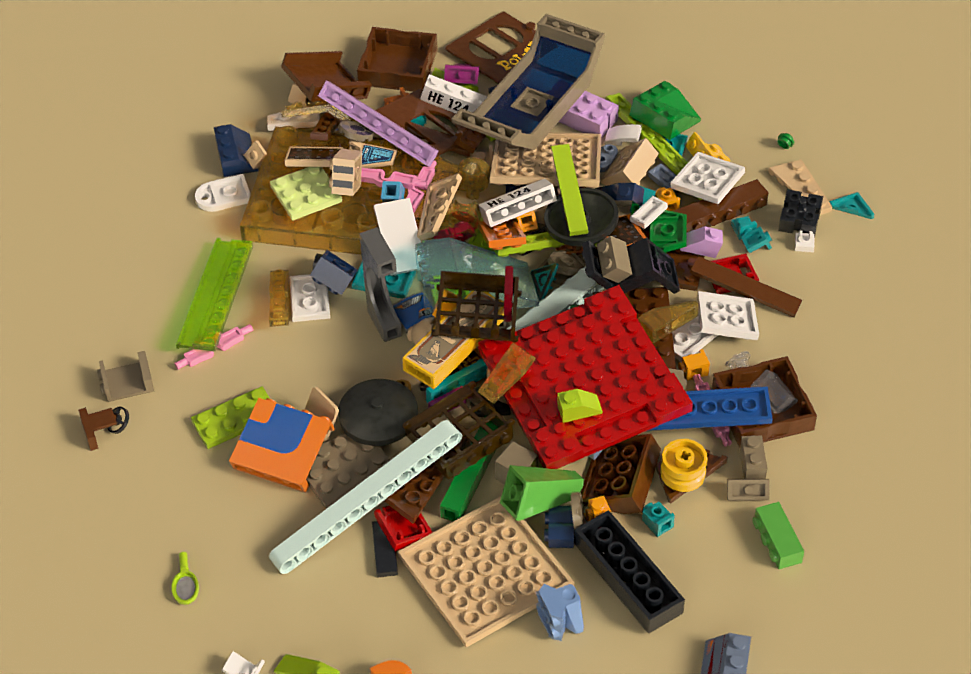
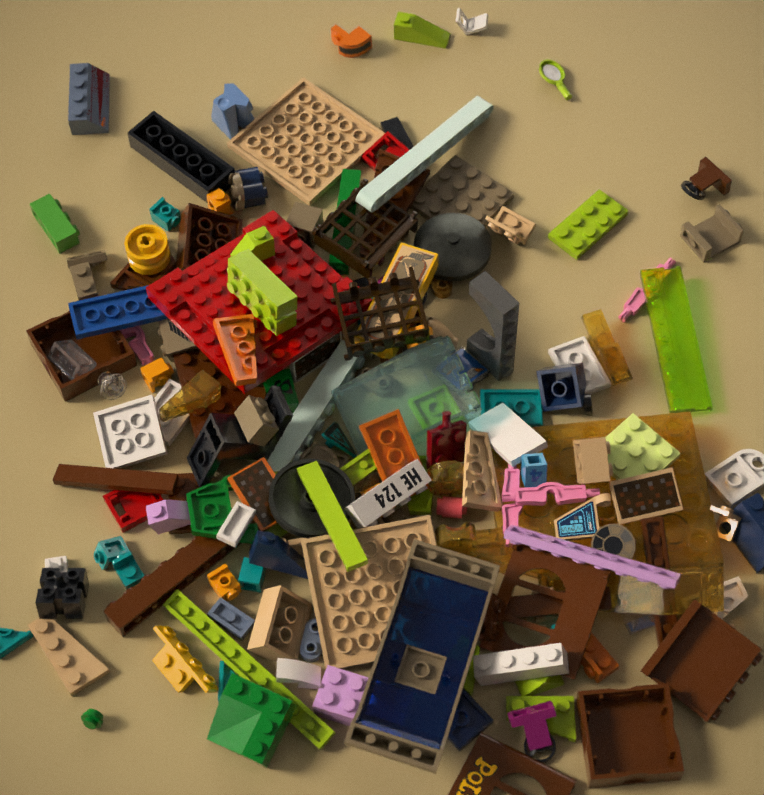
camera: 165 degrees right, 10 degrees up
(280, 443) = (526, 192): orange panel -> none
(507, 372) = (328, 263): clear yellow slope -> none
(508, 293) = (349, 316): dark red tile -> none
(537, 490) = (275, 193): bright green slope -> none
(583, 341) = (262, 292): none -> lime piece
(616, 307) = (238, 346): none -> orange wing
(707, 177) = (177, 606): white plate -> none

